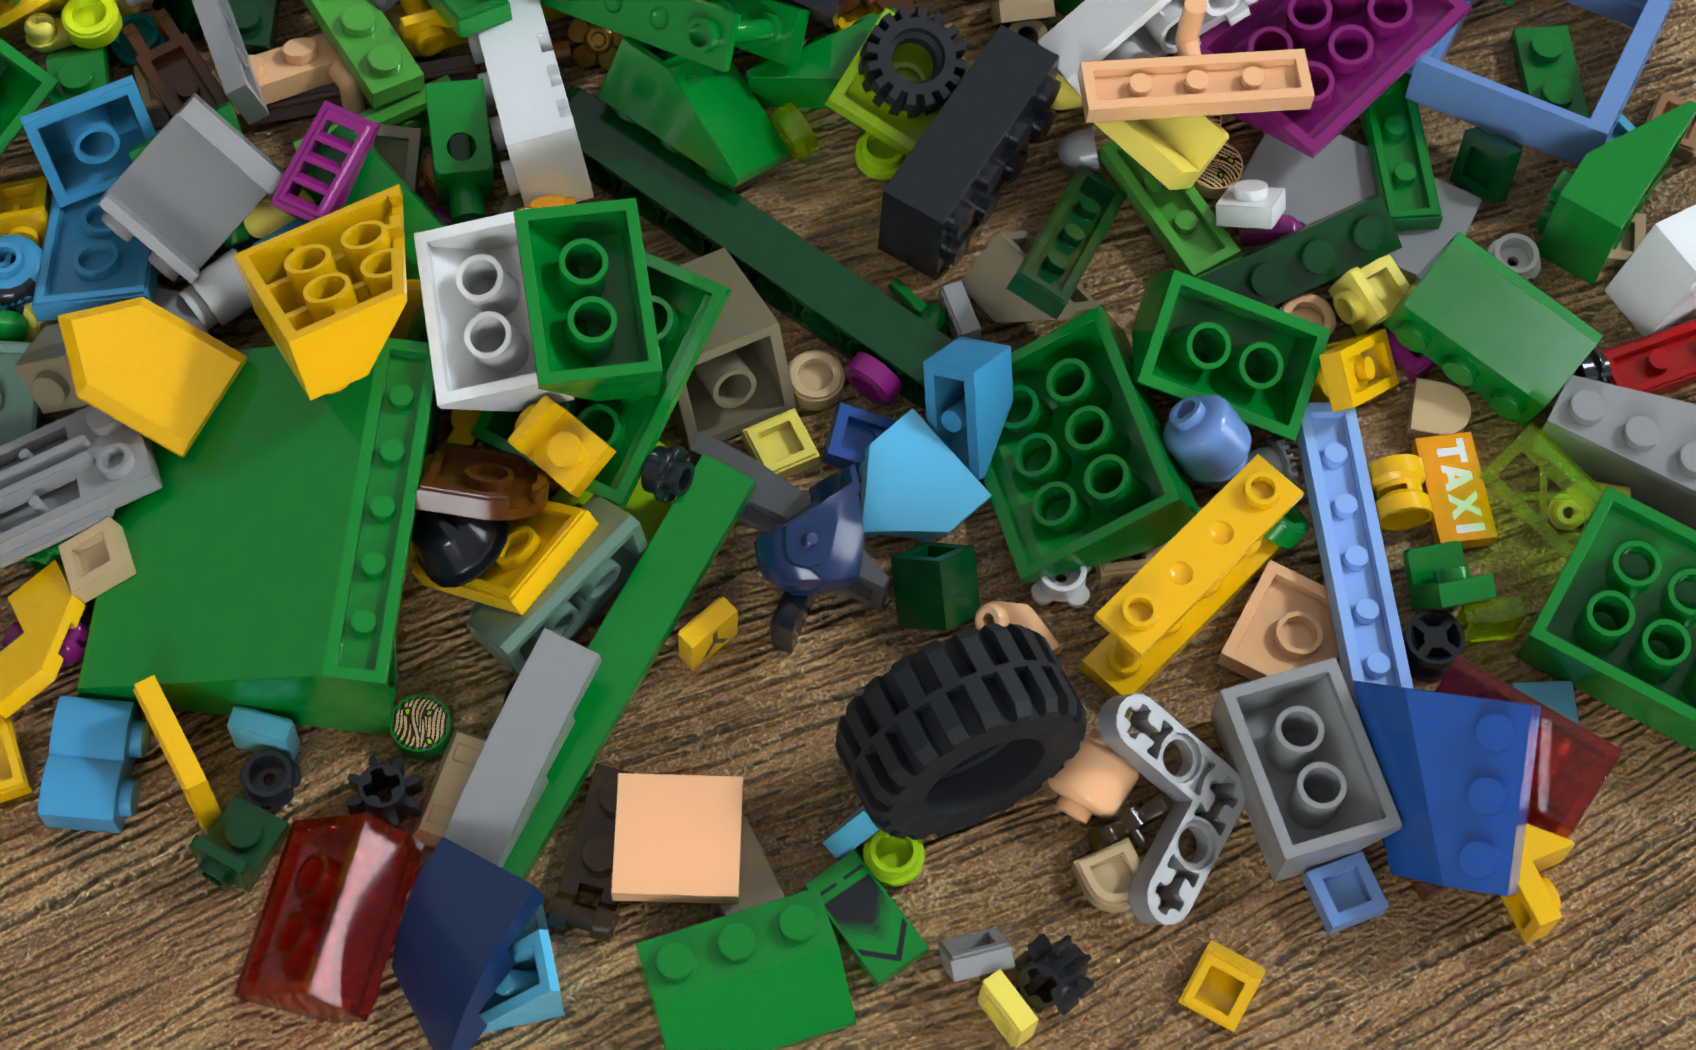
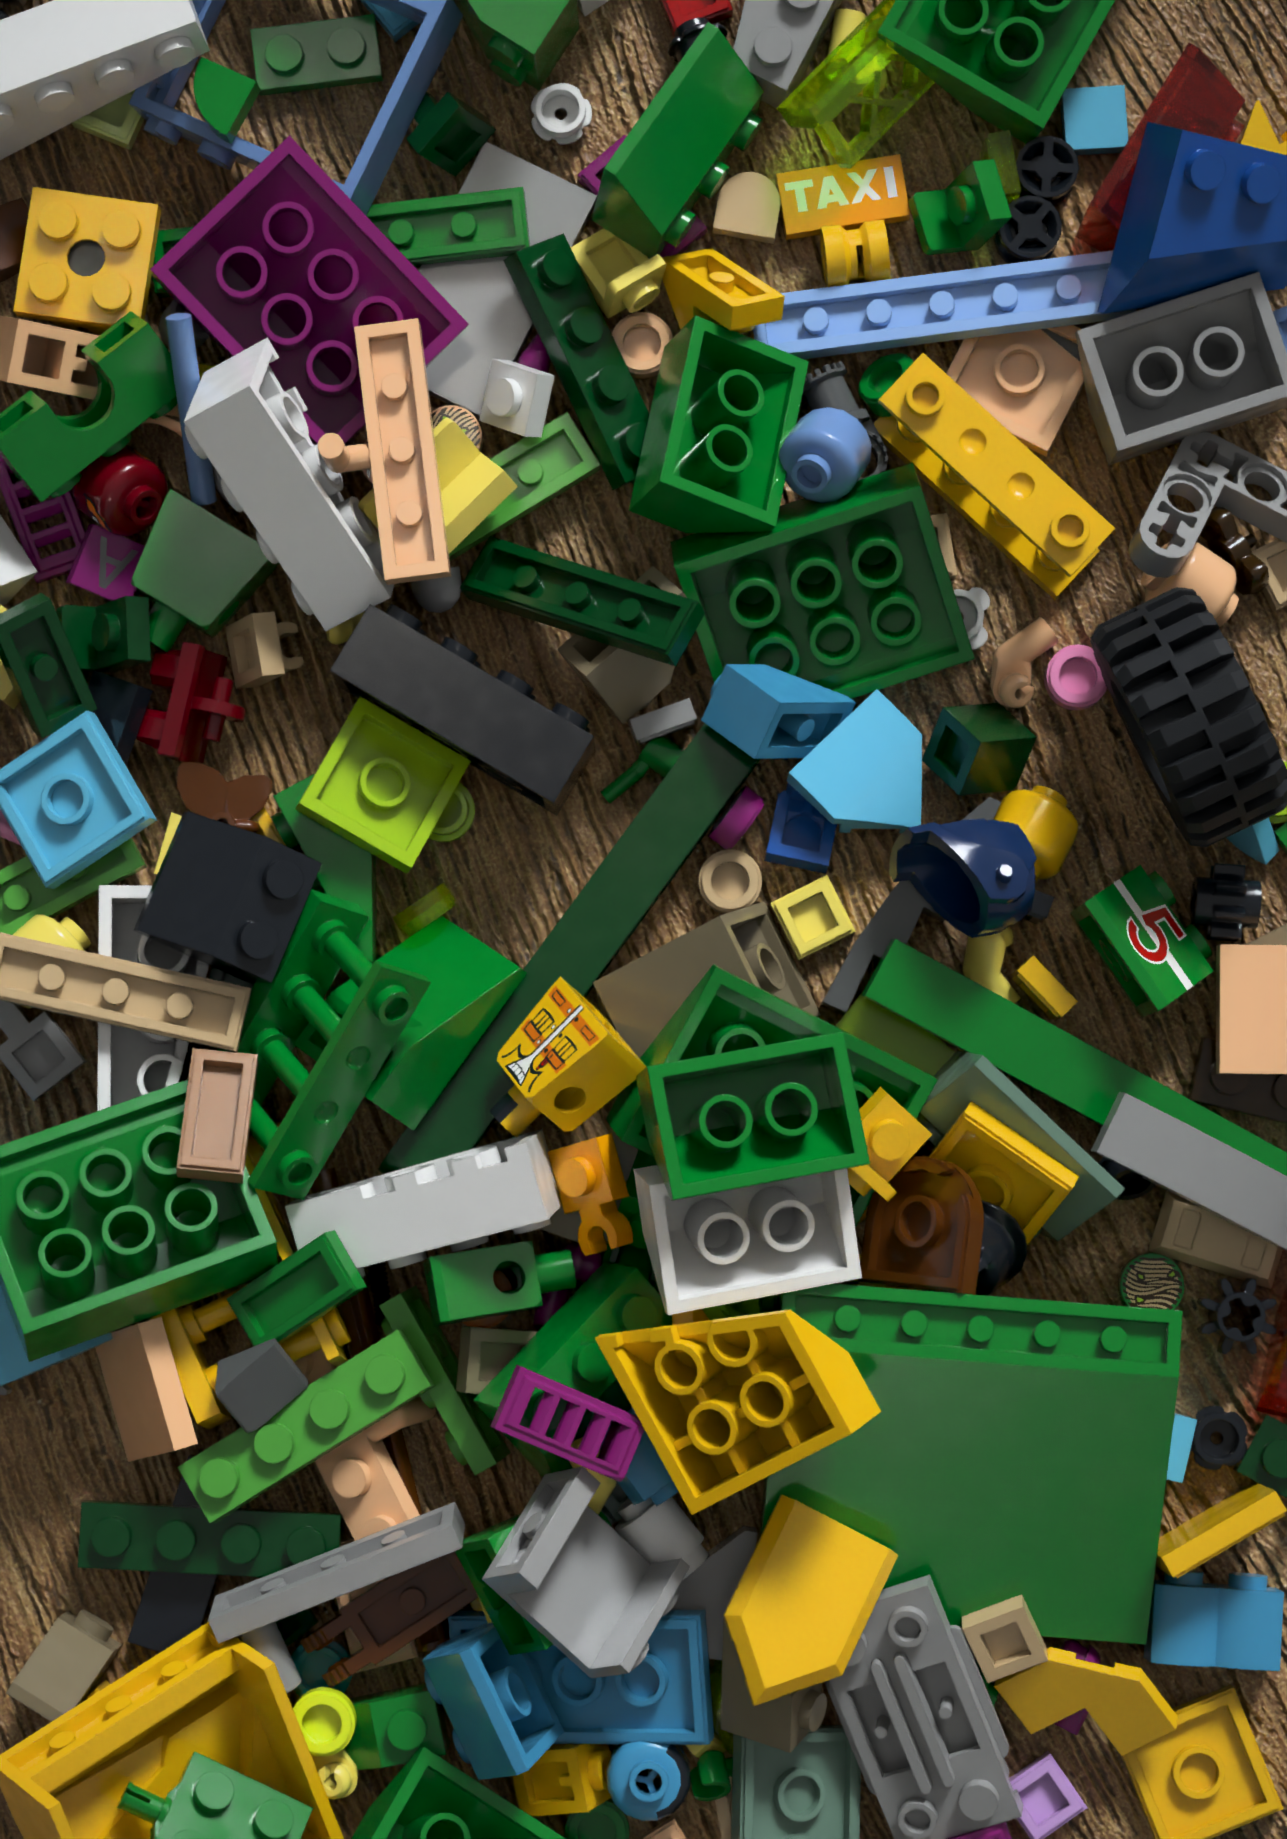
camera: 85 degrees left, 20 degrees up
(667, 473) = (895, 1031): black plate -> none
(672, 210) = (563, 1063): none -> yellow torso
(734, 586) = (984, 963): none -> light yellow arm
(749, 710) = (1144, 940): none -> green slope
(785, 796) = (1225, 902): none -> black gear
(854, 627) = (1045, 823): none -> yellow head
(931, 35) = (395, 740): black tyre -> none
(1497, 650) = (1047, 159): none -> black wheel

